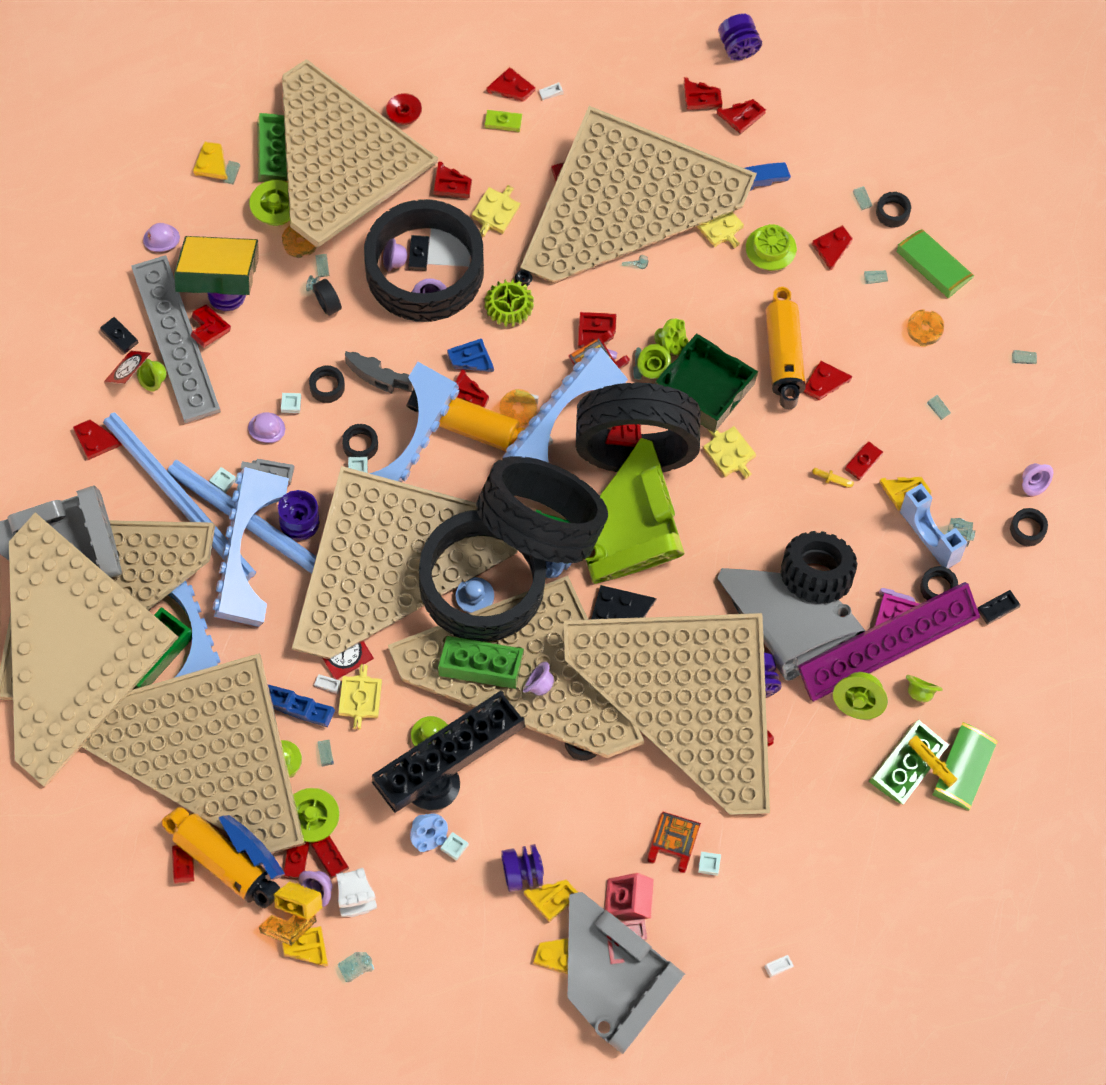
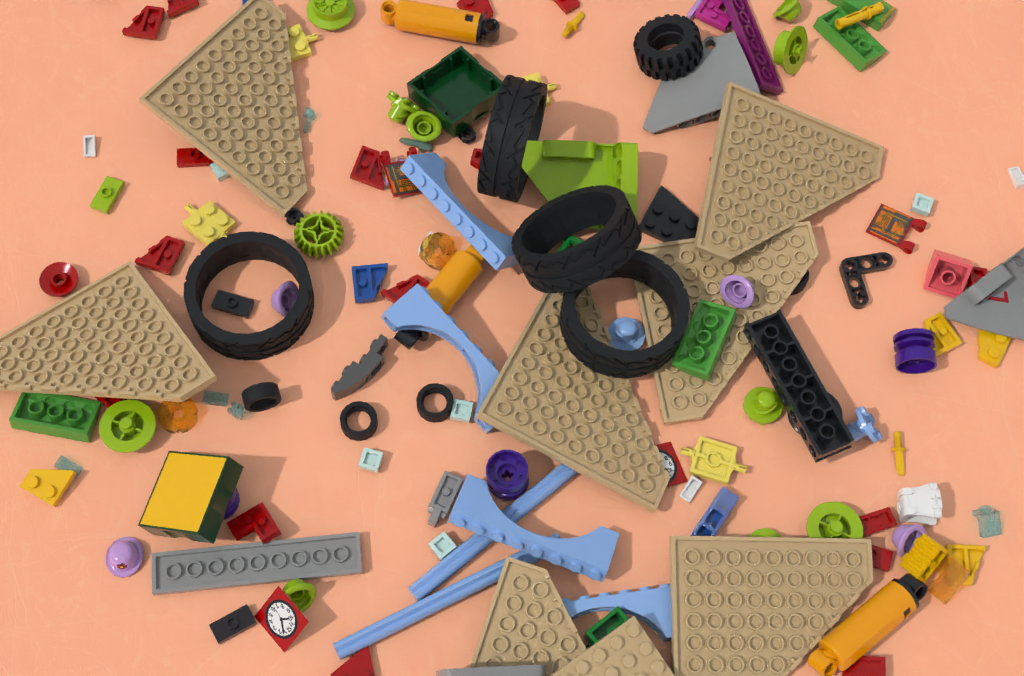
camera: 80 degrees left, 0 degrees up
(247, 842) = (865, 591): blue slope -> none
(266, 427) = (390, 491): lavender hat -> none
(325, 752) = (763, 506): clear light blue piece -> none
(394, 255) = (232, 321): lavender hat -> none
(414, 872) = (899, 461): none -> yellow piece
(447, 250) = (237, 278): white sticker -> none
(454, 846) = (879, 408): light aqua plate -> none
(512, 85) = (69, 178): red wing -> none
(611, 807) = (856, 272): none -> black beam

